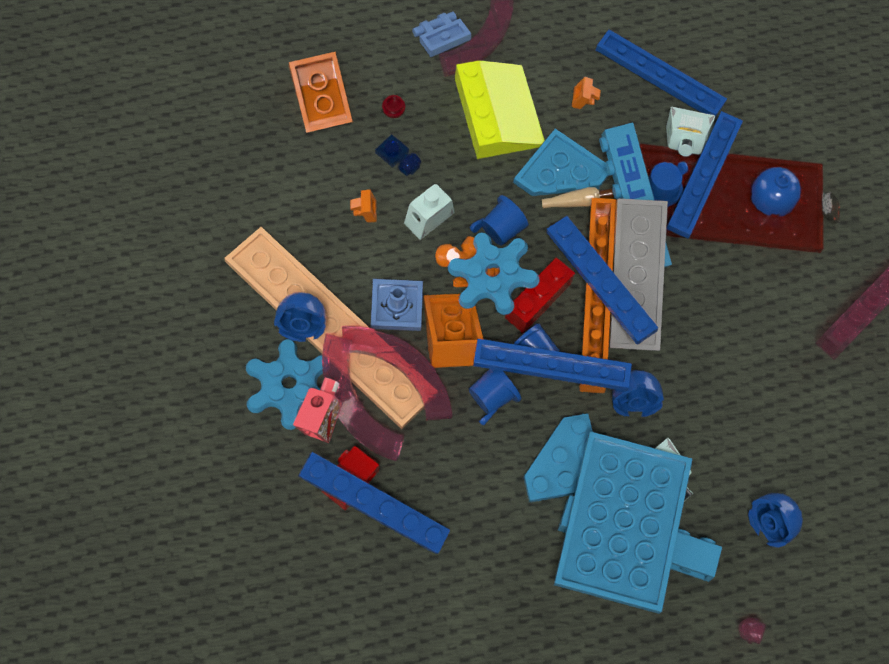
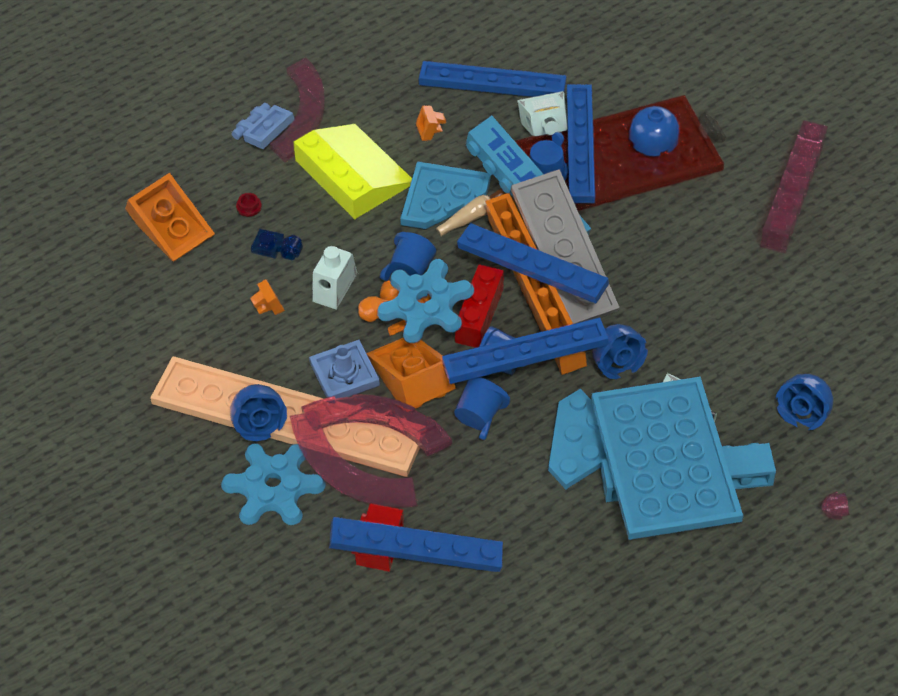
camera: 15 degrees left, 15 degrees down
(319, 411) = (320, 488): coral torso -> none

